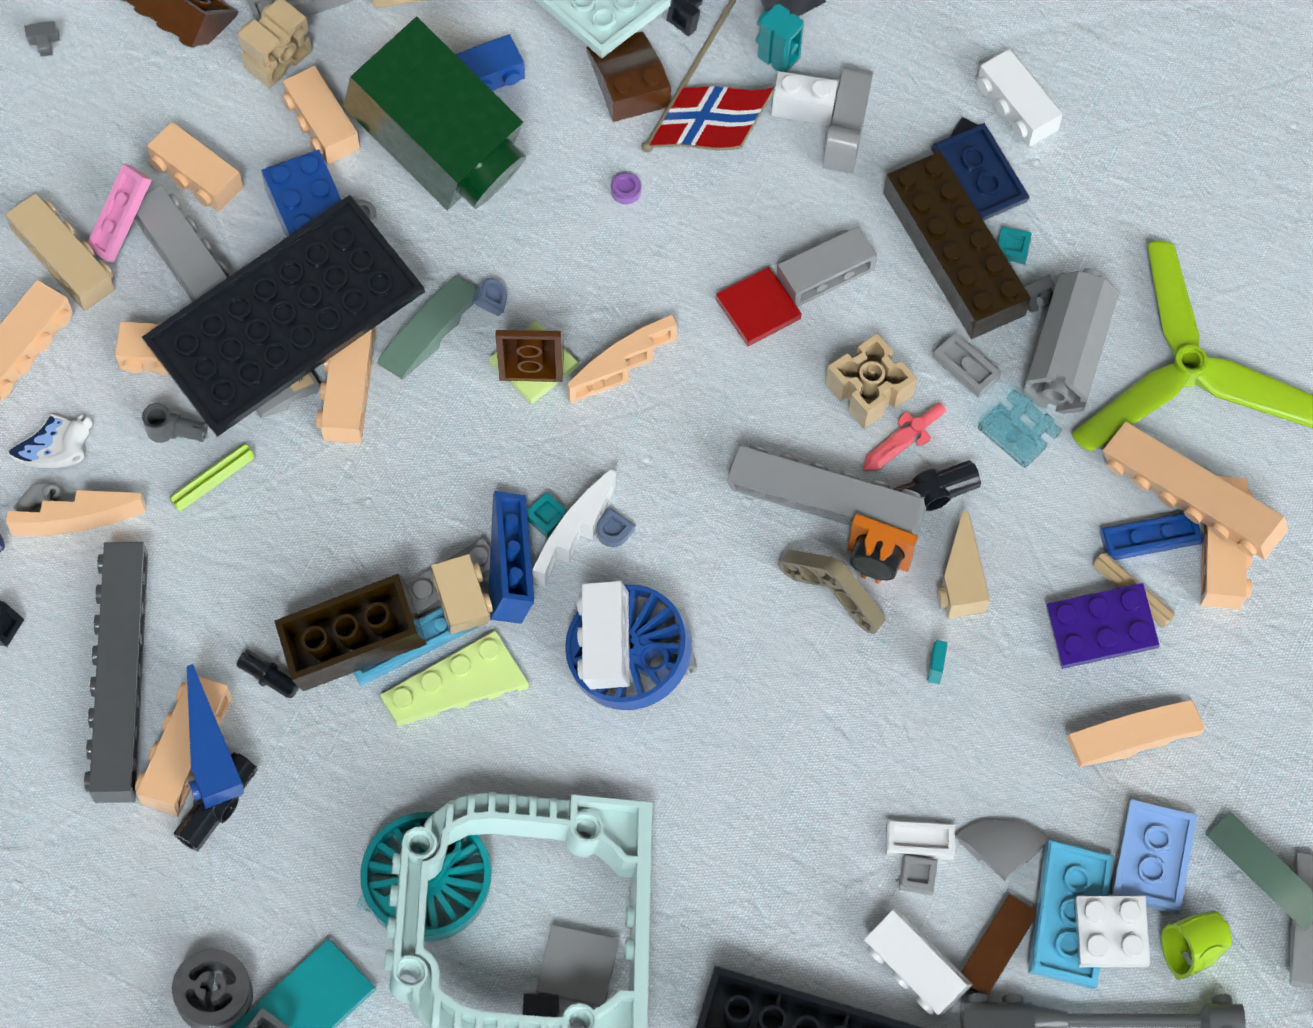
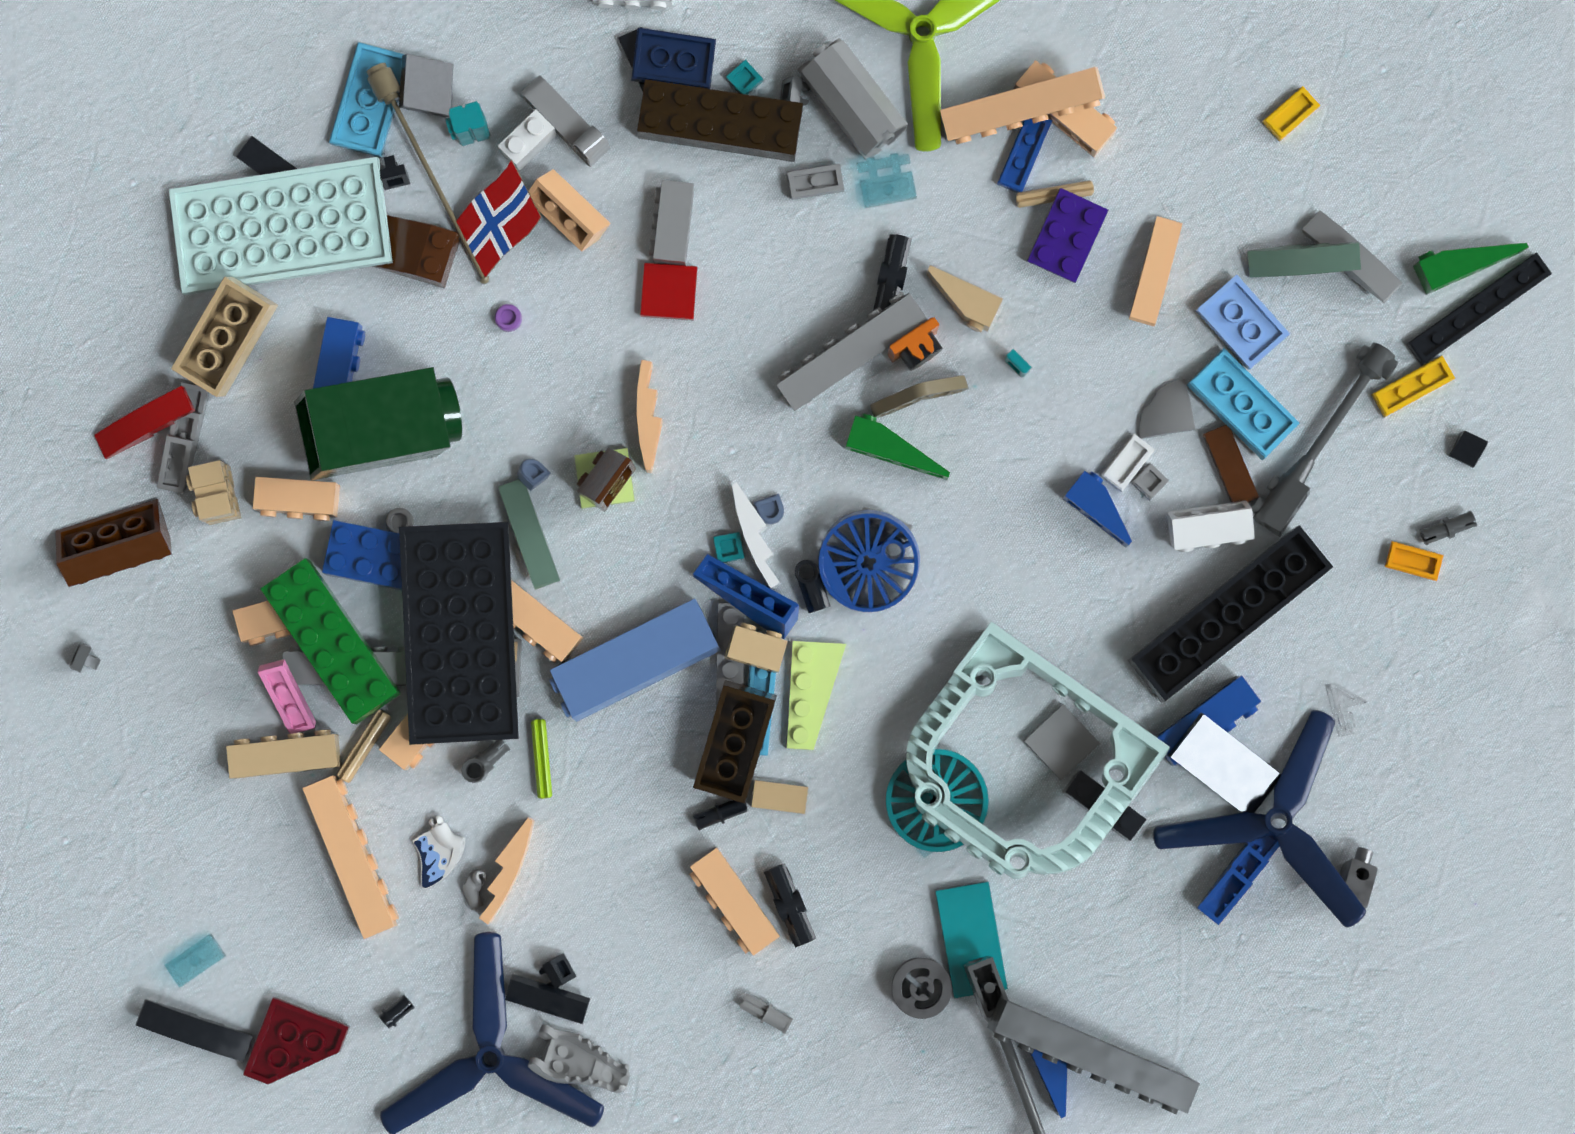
camera: 55 degrees left, 20 degrees up
(84, 853) = (765, 1013): none -> light grey axle
(114, 314) = (363, 746): none -> tan axle
(118, 673) = (649, 912): dark grey brick -> none
(197, 212) = (330, 641): none -> green brick
(211, 763) = (768, 893): blue slope -> none
(324, 722) = (779, 797): none -> tan tile
(370, 494) = (634, 661): none -> medium blue brick
(558, 616) = (812, 589): none -> black piece
(604, 635) = (857, 574): white brick -> none
(755, 578) = (881, 443): none -> green slope
(765, 168) = (568, 210): none -> light nougat brick
(854, 827) = (1095, 503): none -> blue slope
(870, 381) = (774, 247): tan brick -> none
(903, 437) = (838, 265): coral sword -> none
(1112, 931) = (1275, 388): white plate -> none
(1202, 936) = (1319, 333): lime helmet -> none

